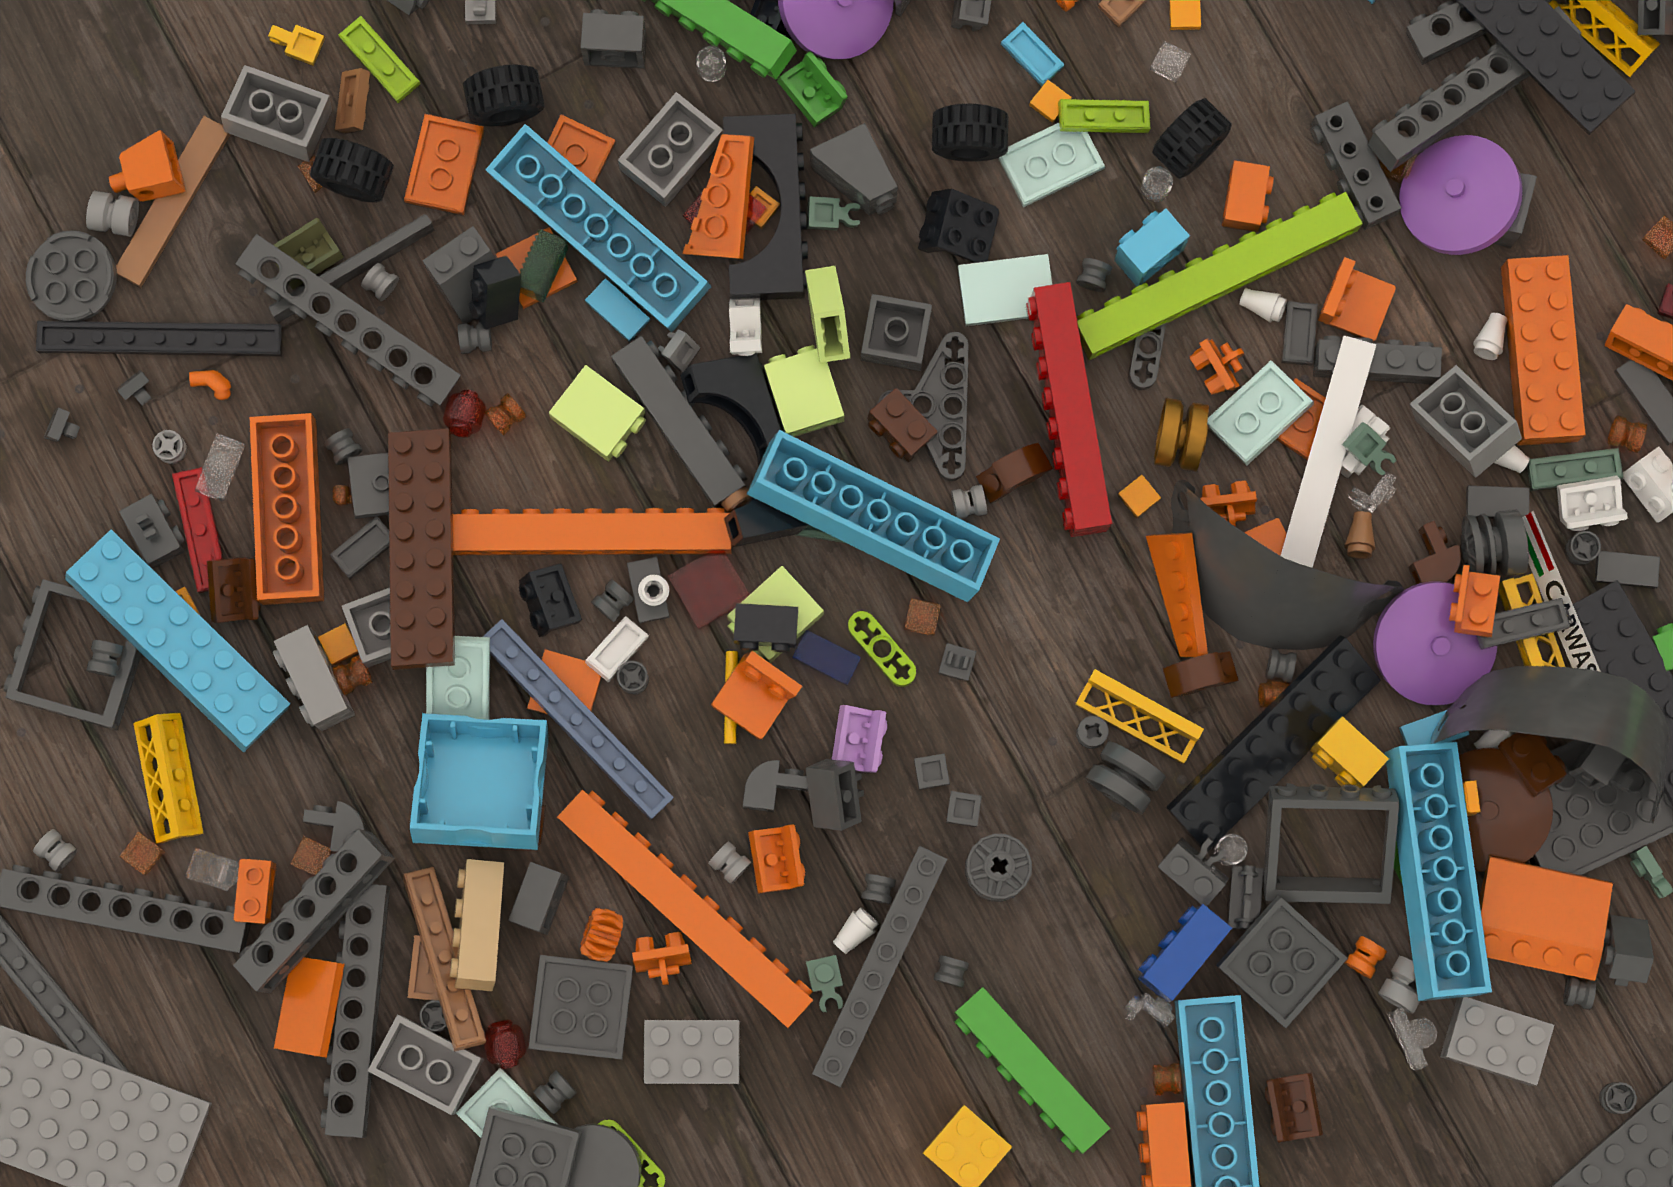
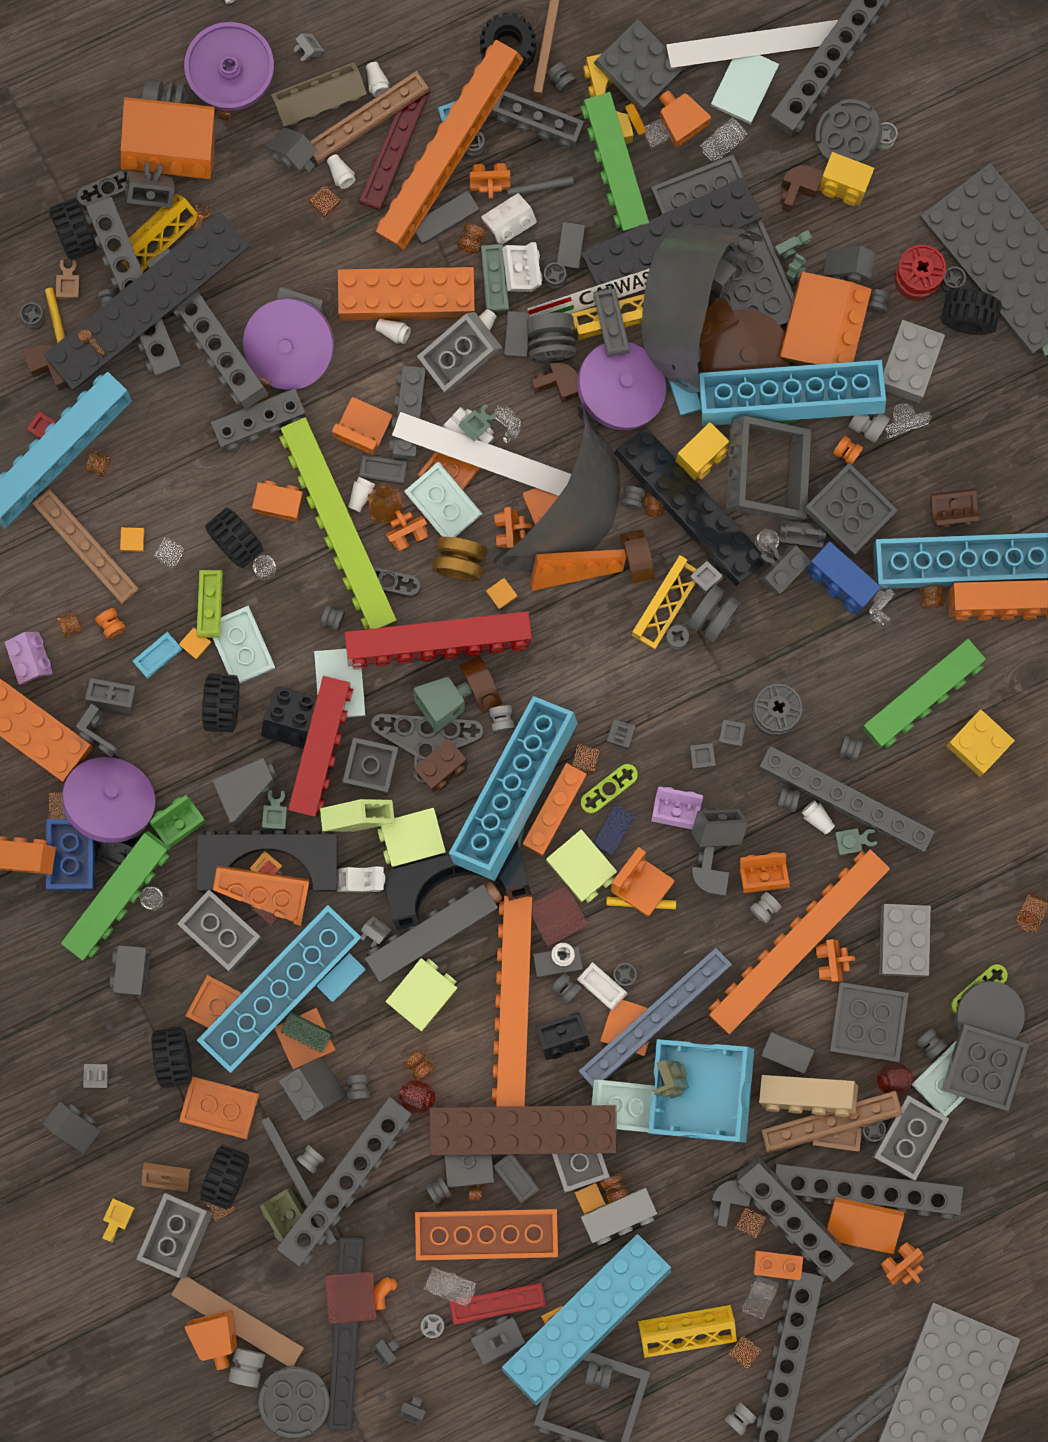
camera: 90 degrees left, 0 degrees up
(203, 340) = (350, 1297): none -> clear red tile
(233, 589) = (546, 1276): reddish brown bracket -> none
(249, 1052) = (912, 1258): none -> orange hips
(379, 59) = (132, 1156): lime tile -> none
(495, 292) = (328, 1067): black brick -> none
(495, 741) = (674, 1079): none -> olive bracket
(601, 934) = (817, 1003): orange gear -> none
(765, 626) = (593, 871): black brick -> none
(849, 575) = (554, 810): none -> orange brick
(920, 265) = (319, 746): none -> red brick
(987, 420) = (441, 701): none -> sand green torso
(1151, 246) = (316, 573): medium azure brick -> none
(1177, 767) = (706, 577): none -> light grey tile
(1251, 334) = (384, 504): none -> clear orange panel
(1360, 538) = (539, 434): medium nougat cone -> none
(1471, 797) = (739, 365): light orange tile -> none
(1476, 603) = (597, 352): orange bracket -> none
(1572, 1121) = (971, 311): none -> black tyre
(1606, 1047) = (919, 284): none -> red wheel
(1620, 877) = (796, 268): none -> sand green plate
(1629, 75) = (200, 216): none -> clear orange hand

